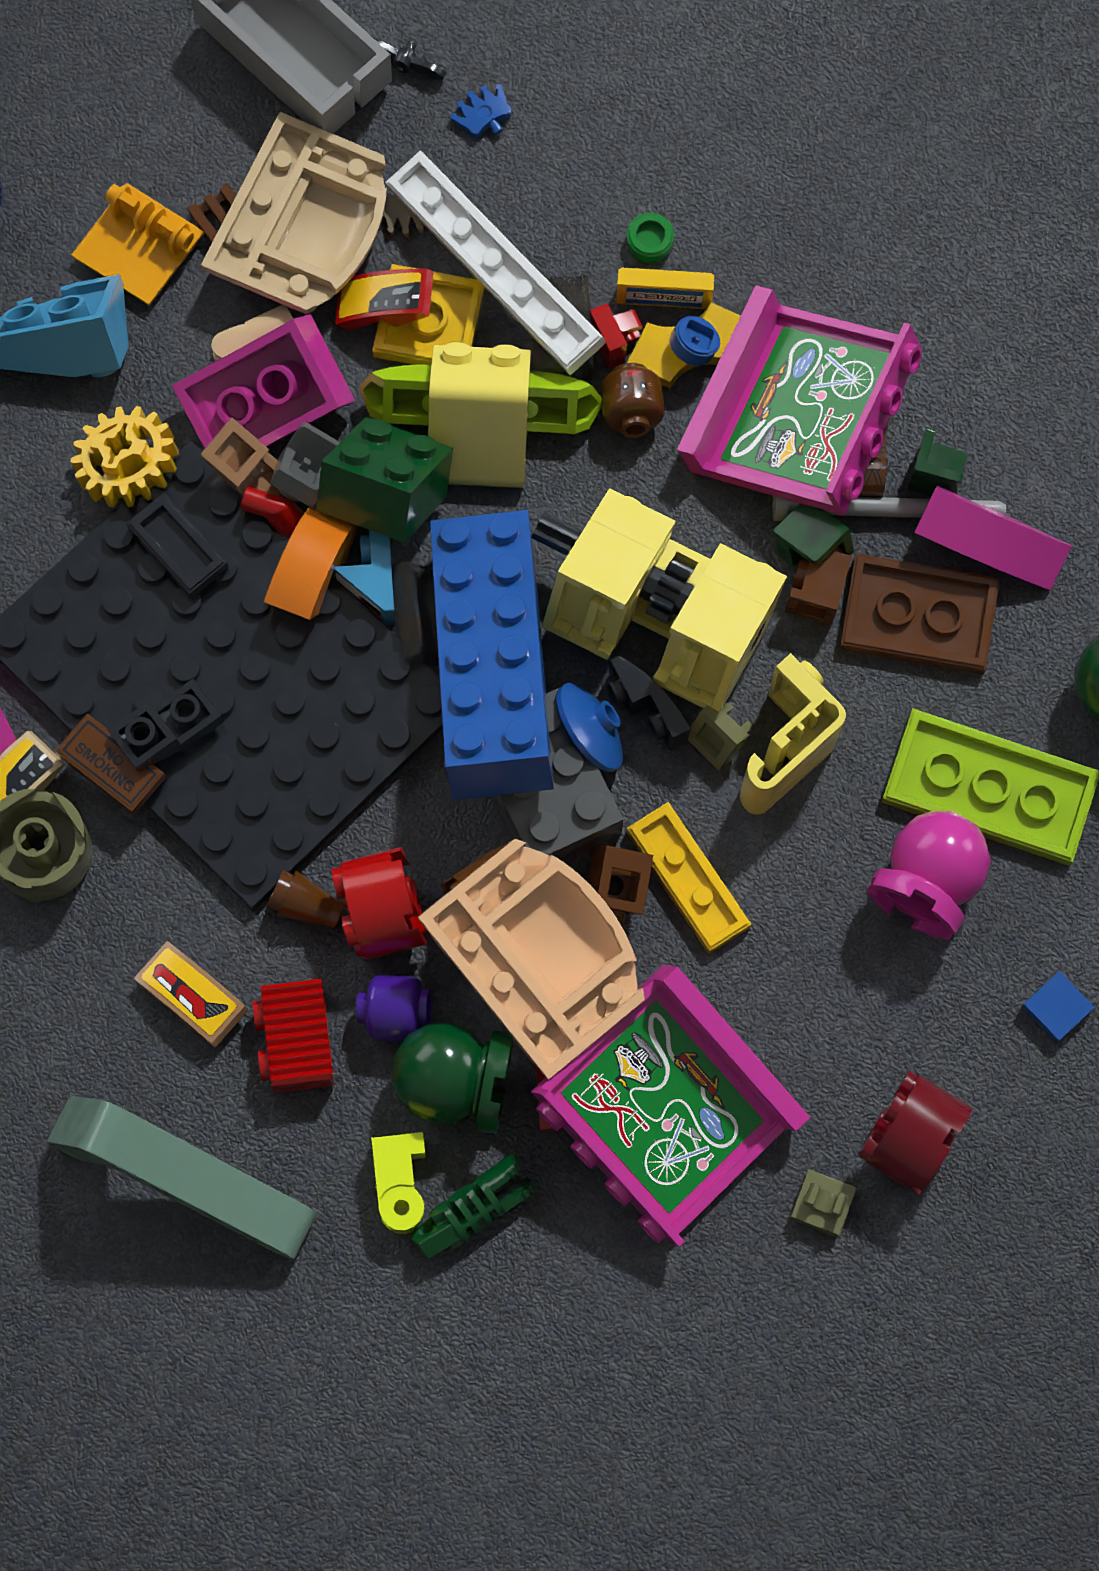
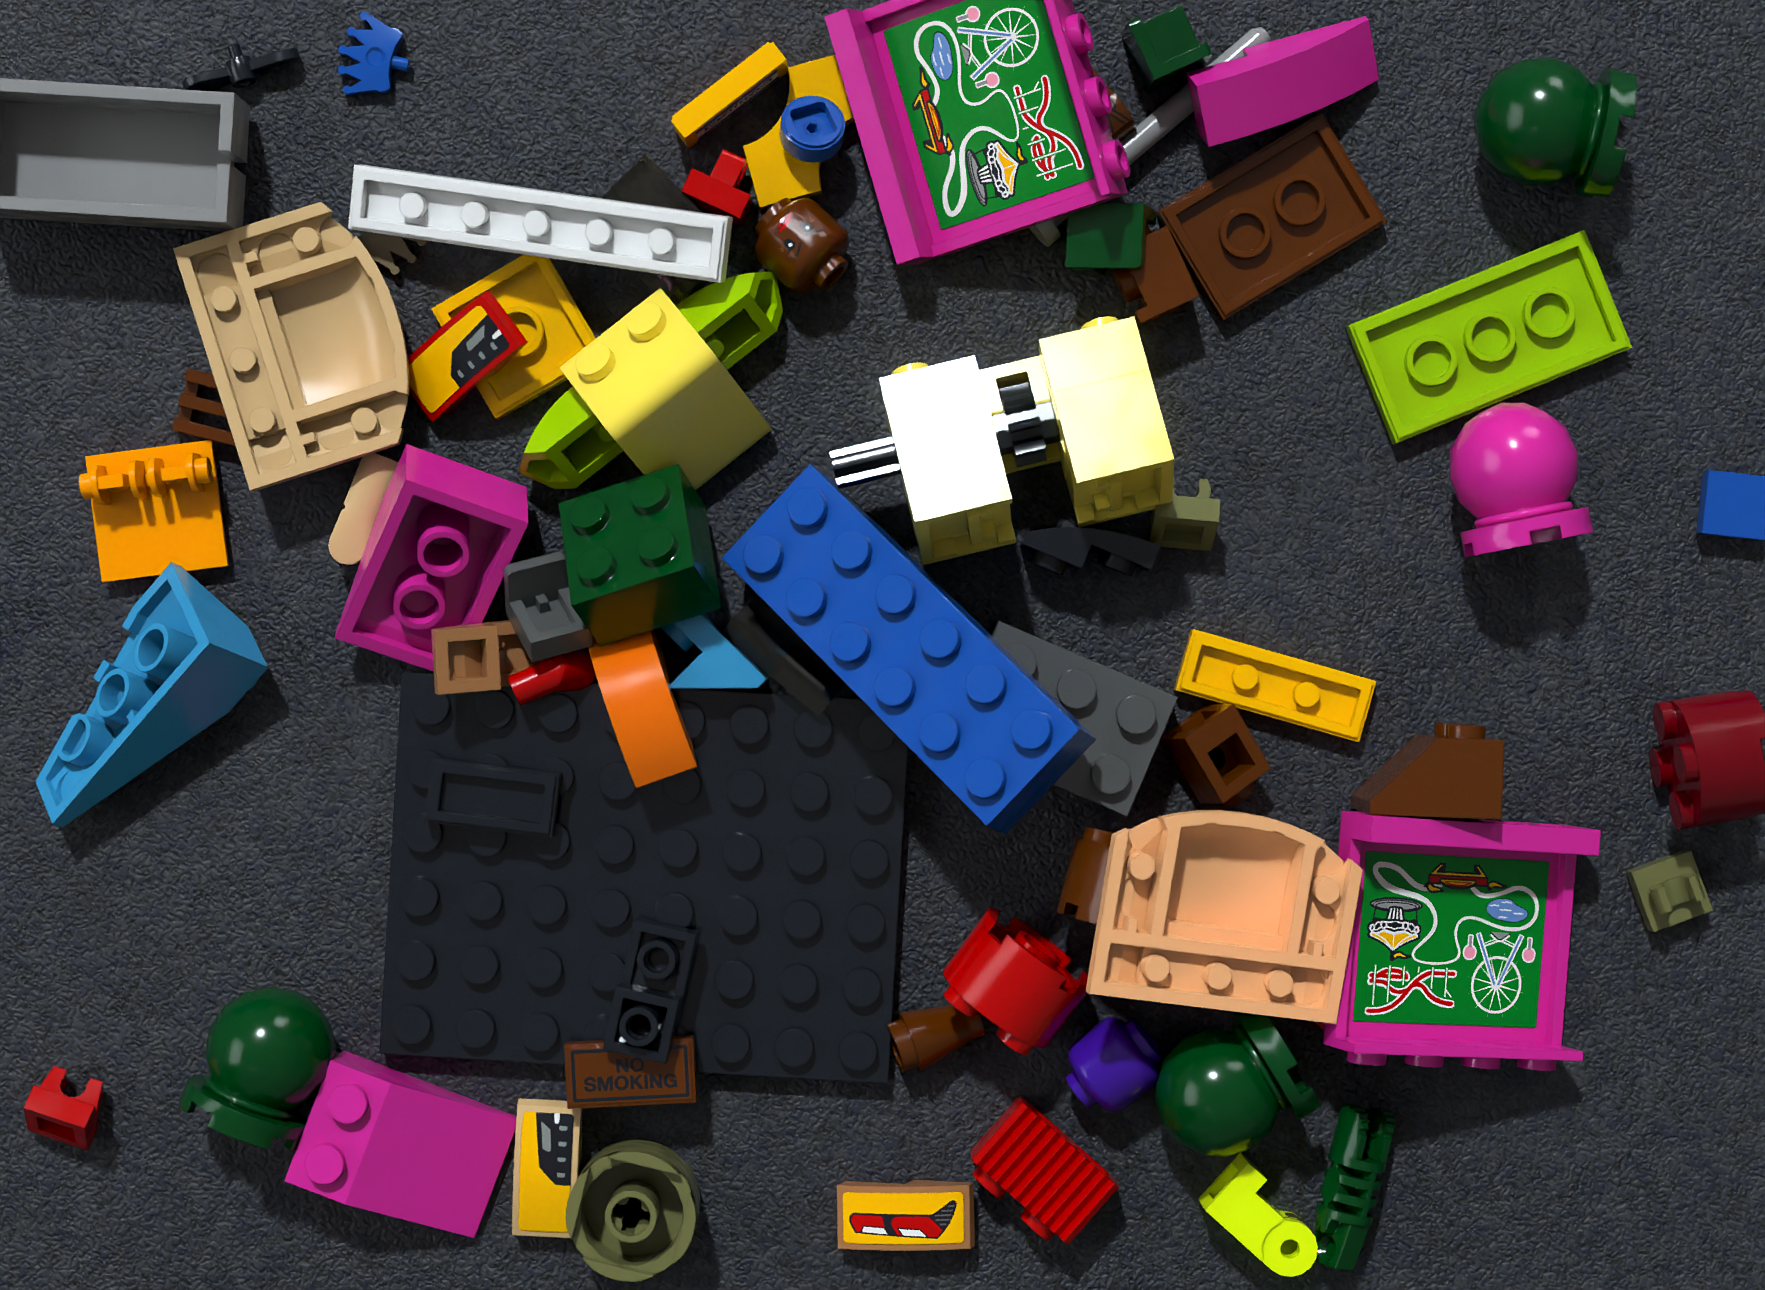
camera: 45 degrees left, 15 degrees up
(124, 456) = (372, 769): yellow gear -> none
(591, 726) = (1060, 628): blue dish -> none
(650, 237) = (663, 47): green tile -> none
(744, 995) = (1439, 776): none -> reddish brown slope
(804, 739) = (1281, 462): light yellow piece -> none

